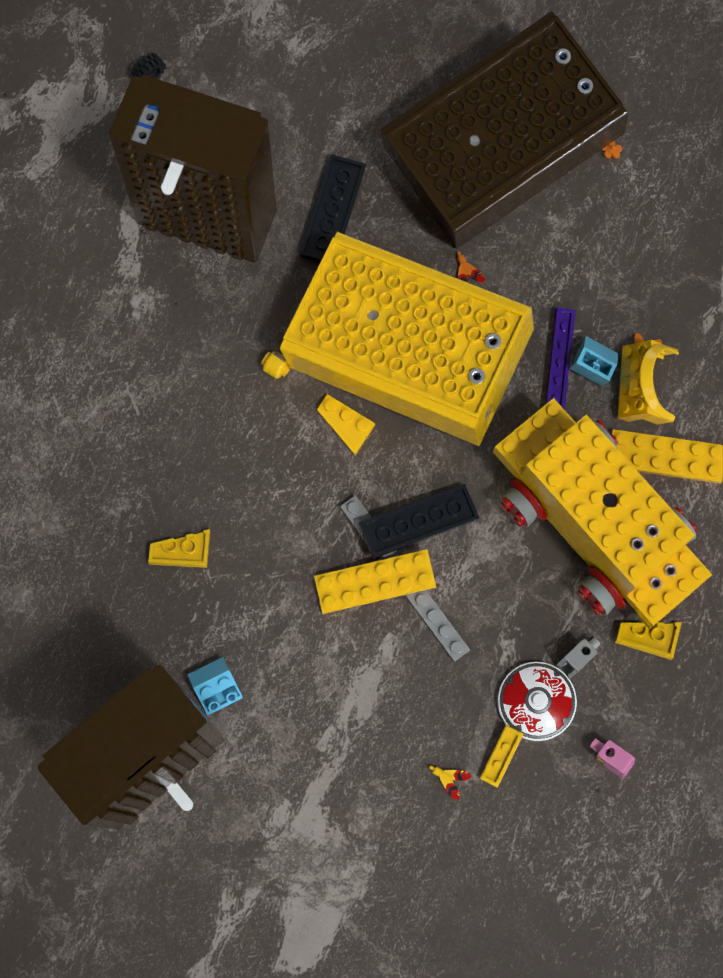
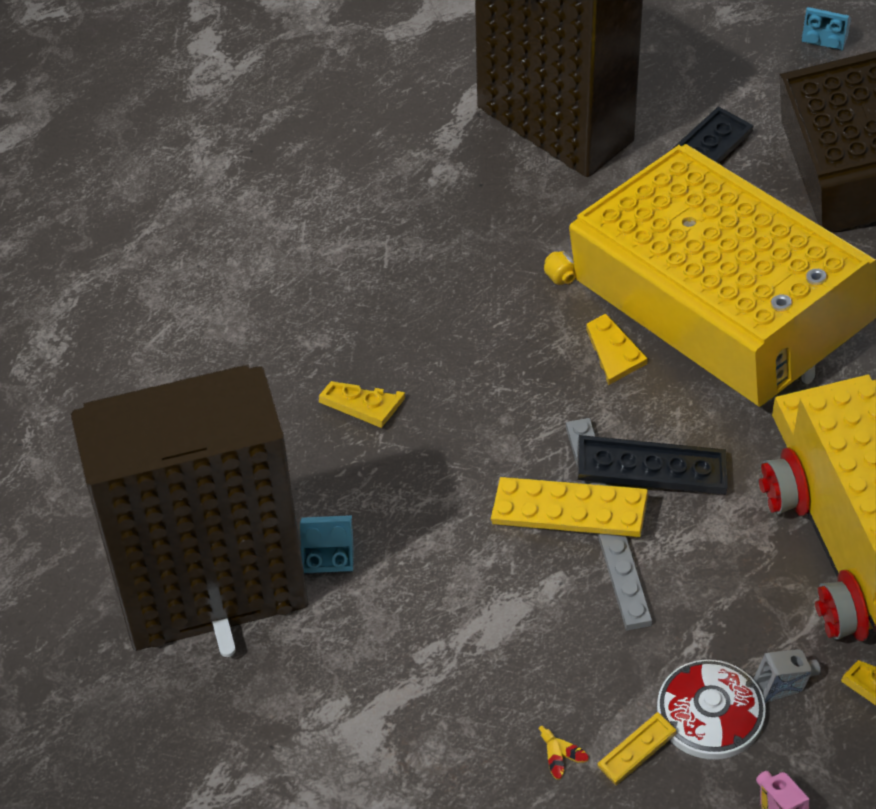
camera: 30 degrees right, 25 degrees down
(384, 38) = (825, 28): none -> medium azure slope

